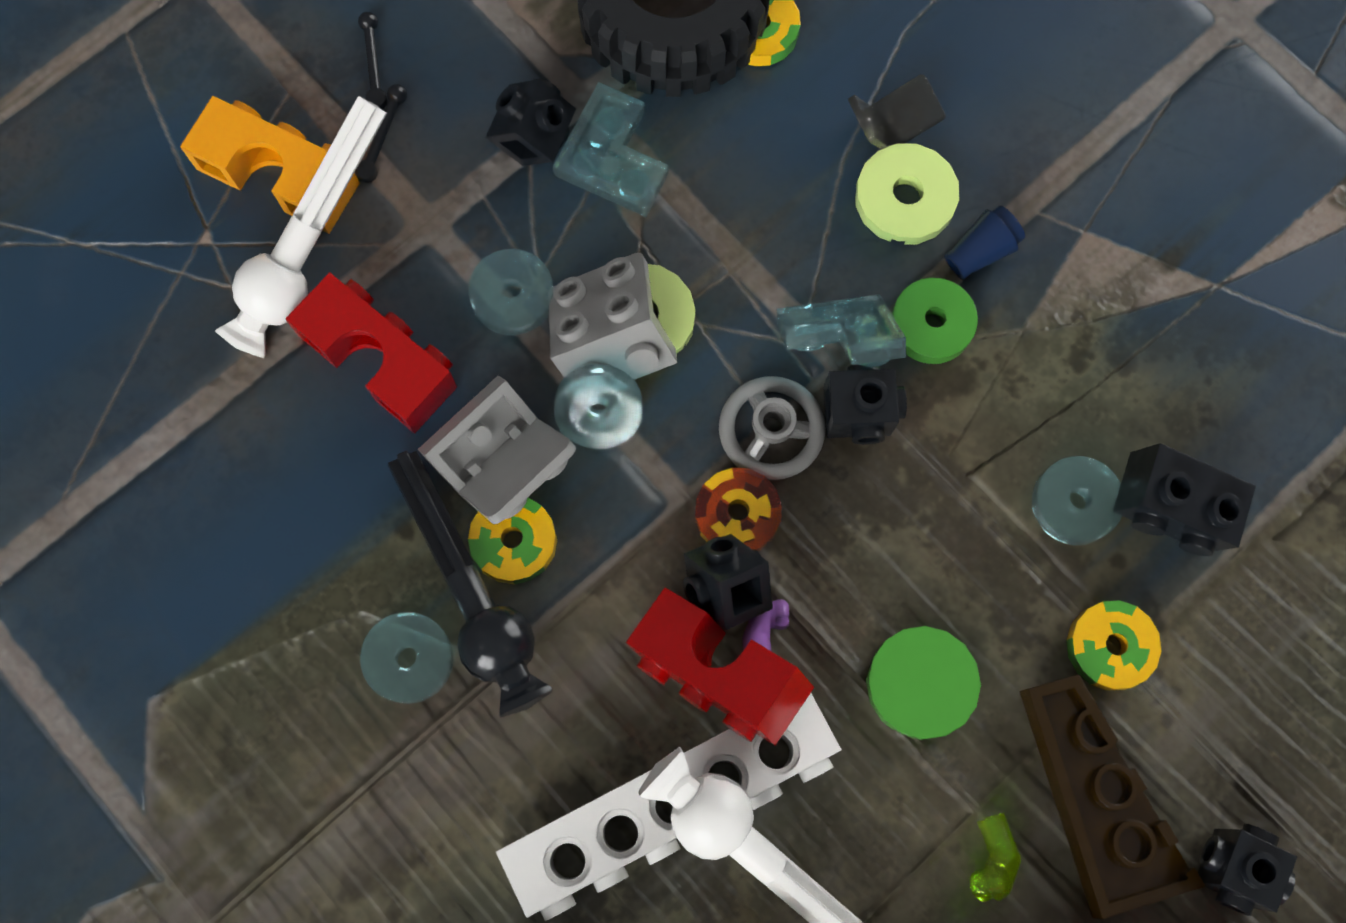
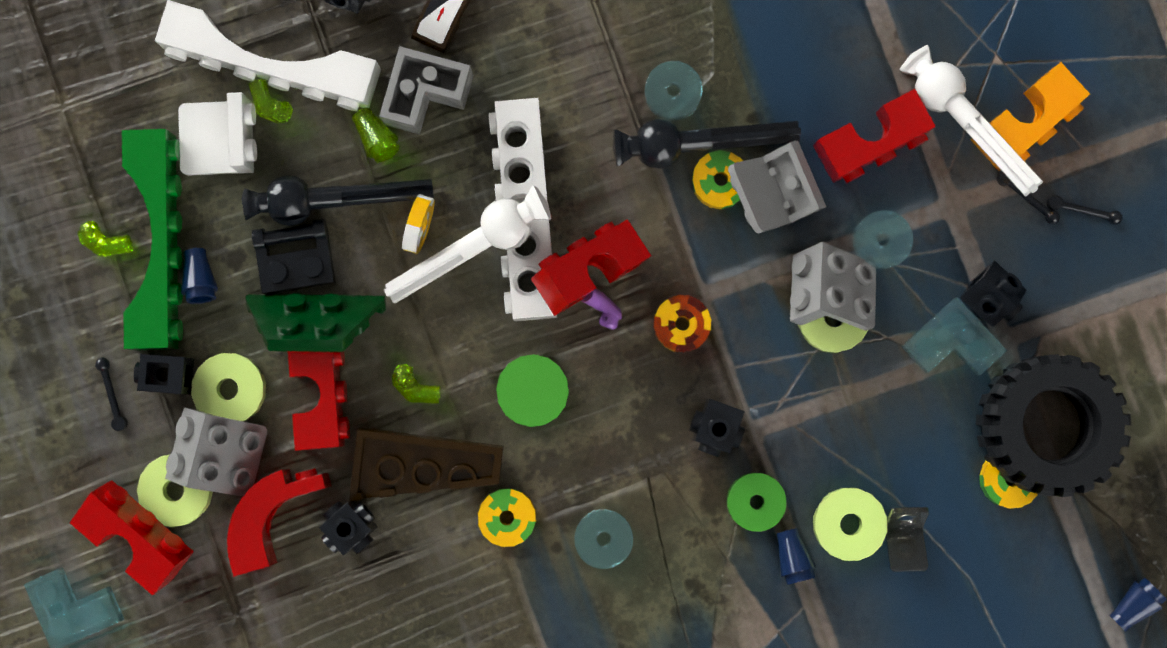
camera: 115 degrees right, 10 degrees up
(603, 386) = (781, 261): clear light blue piece -> none
(728, 581) = (639, 295): black brick -> none
(778, 409) = (740, 367): light grey piece -> none
(859, 323) = (775, 444): clear light blue plate -> none
(1184, 500) = (575, 600): black brick -> none

